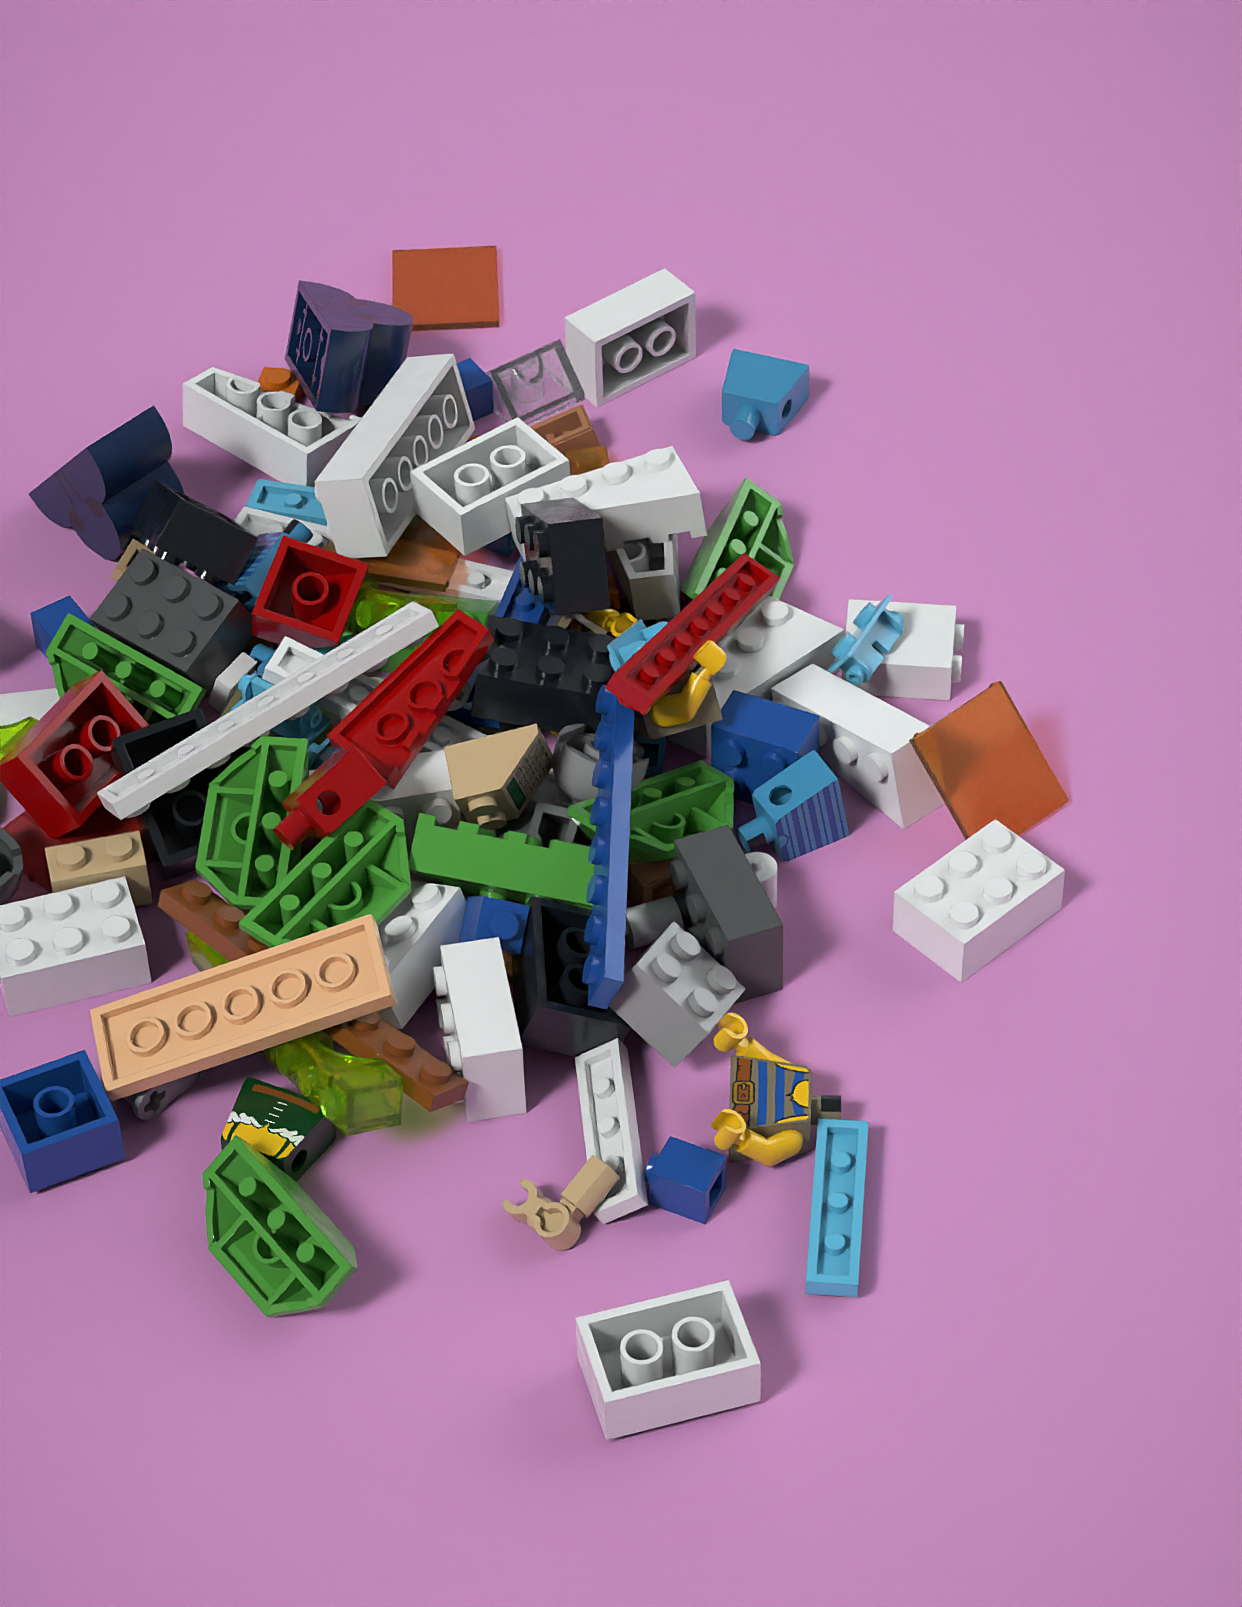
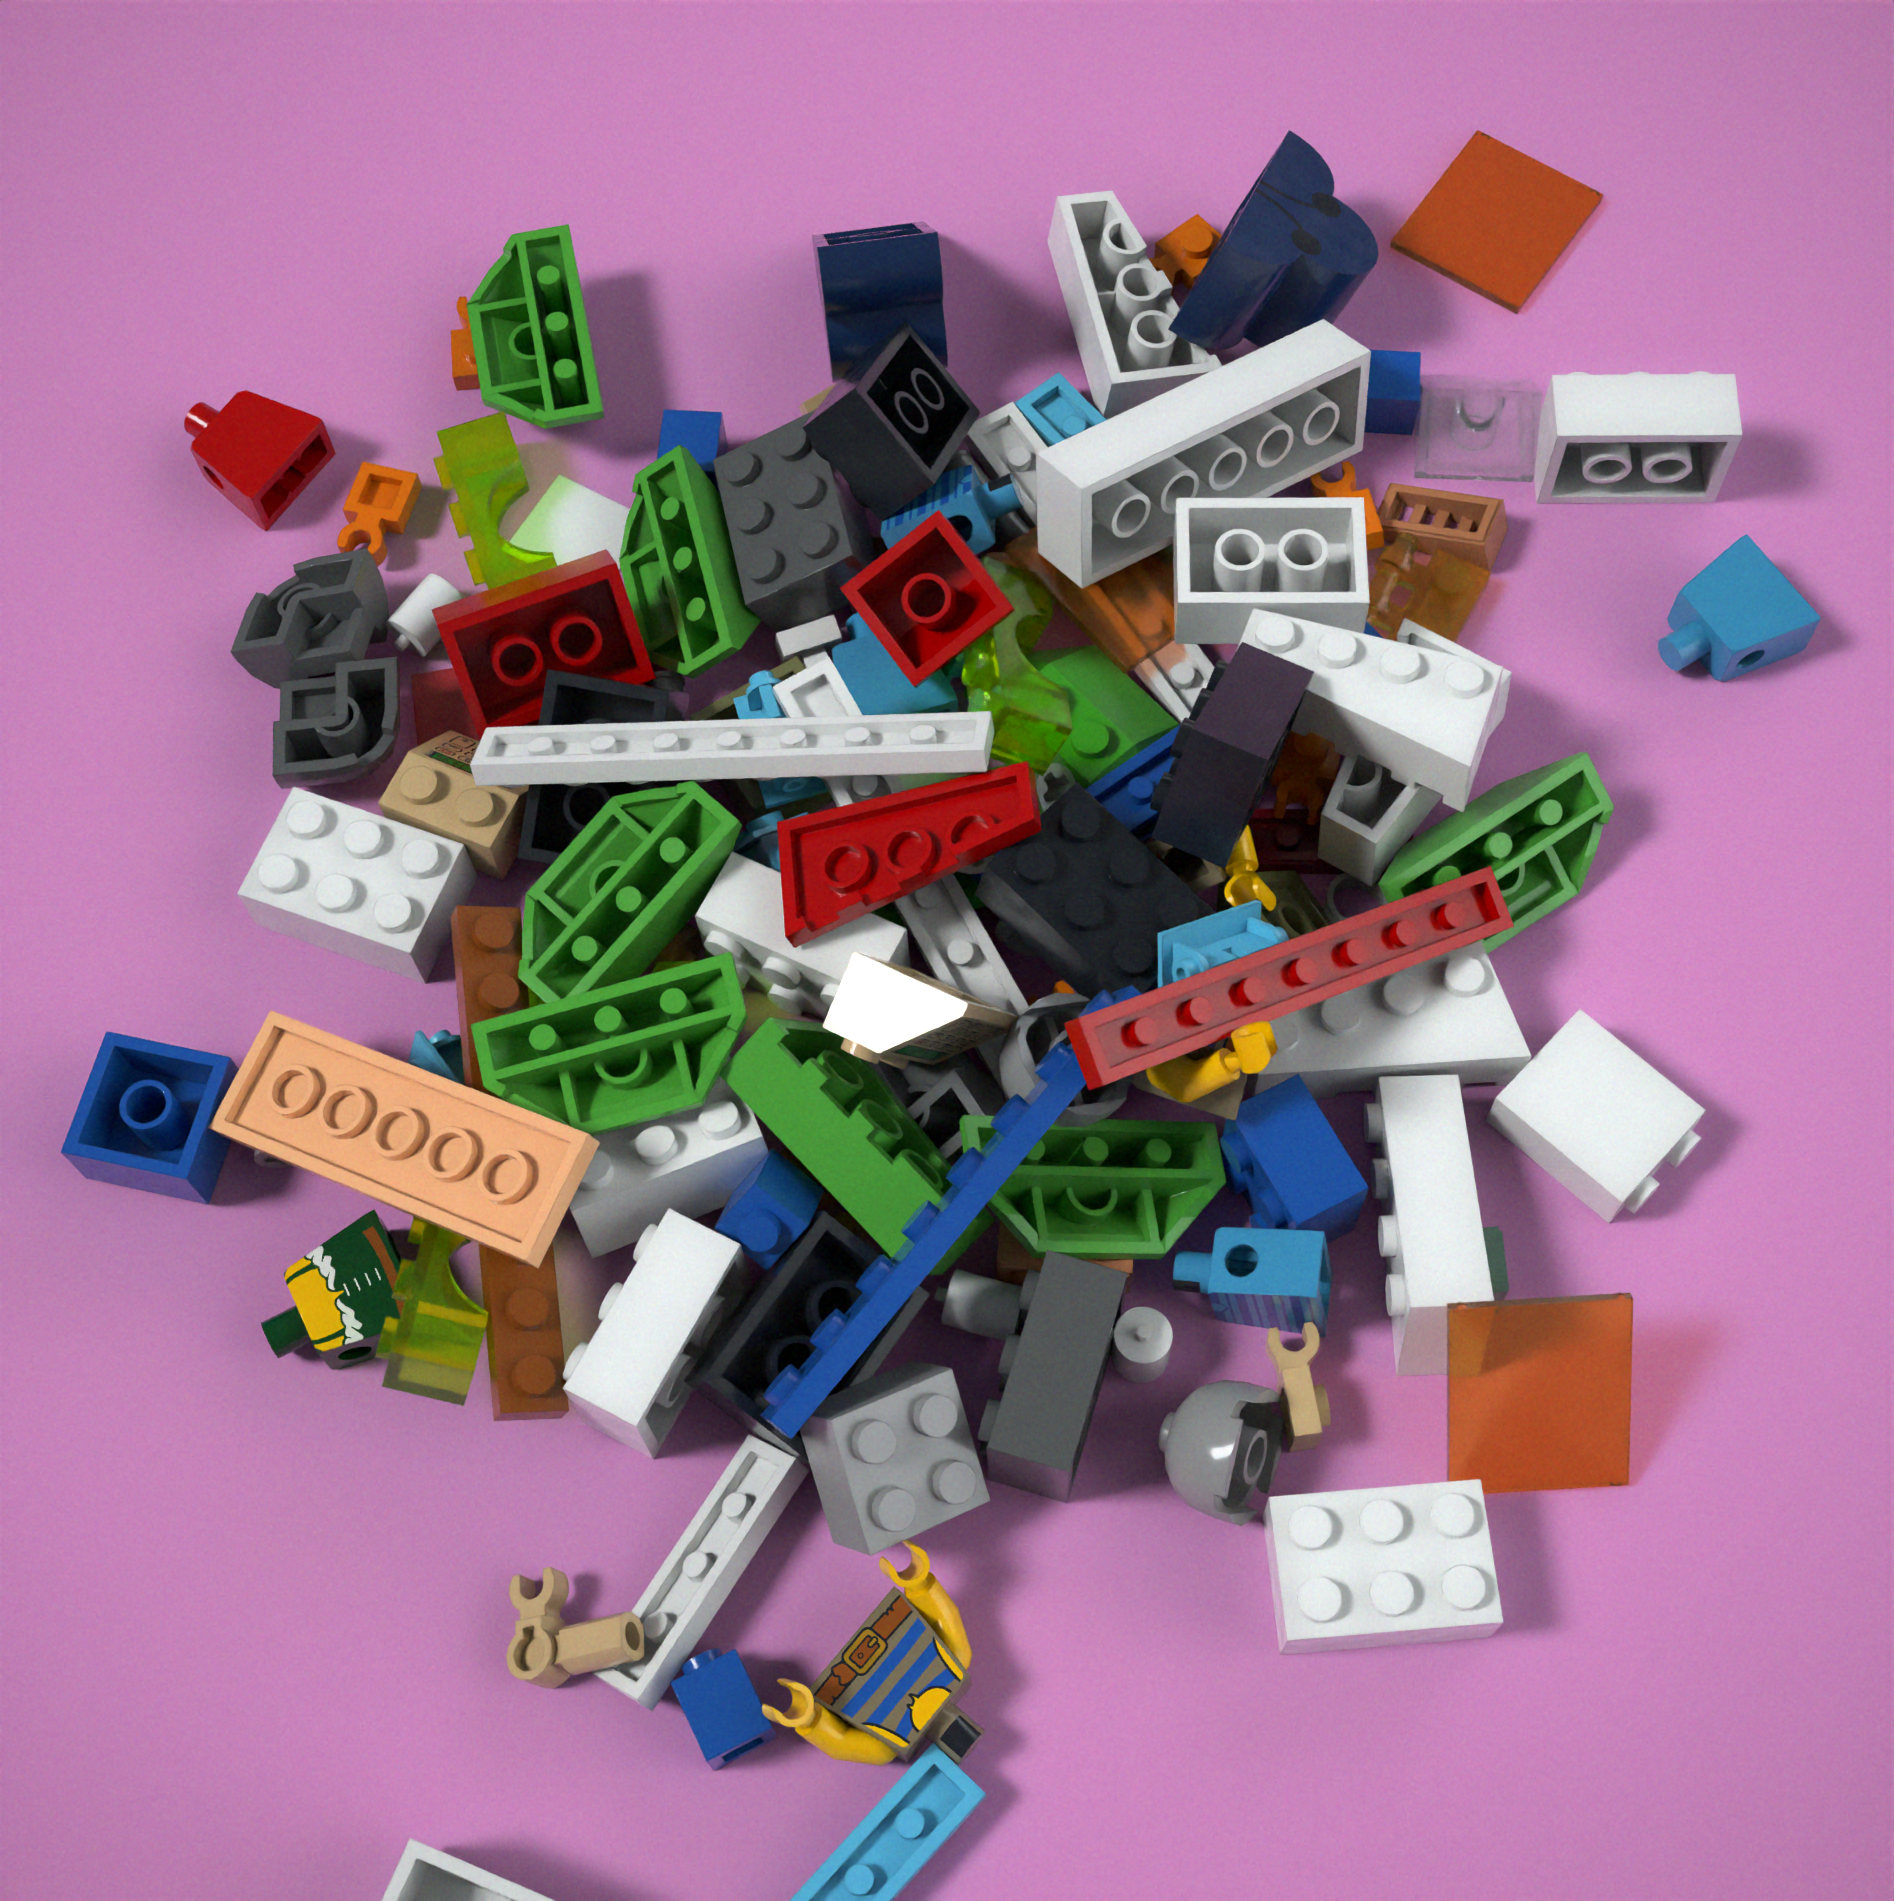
camera: 40 degrees right, 20 degrees up
(272, 1234) = (248, 1445): bright green wedge -> none
(342, 787) = (687, 925): red torso -> none
(843, 898) = (1223, 1448): none -> light grey cylinder
(855, 652) = (1513, 1102): medium azure hinge -> none
(862, 857) = (1302, 1404): none -> tan plate

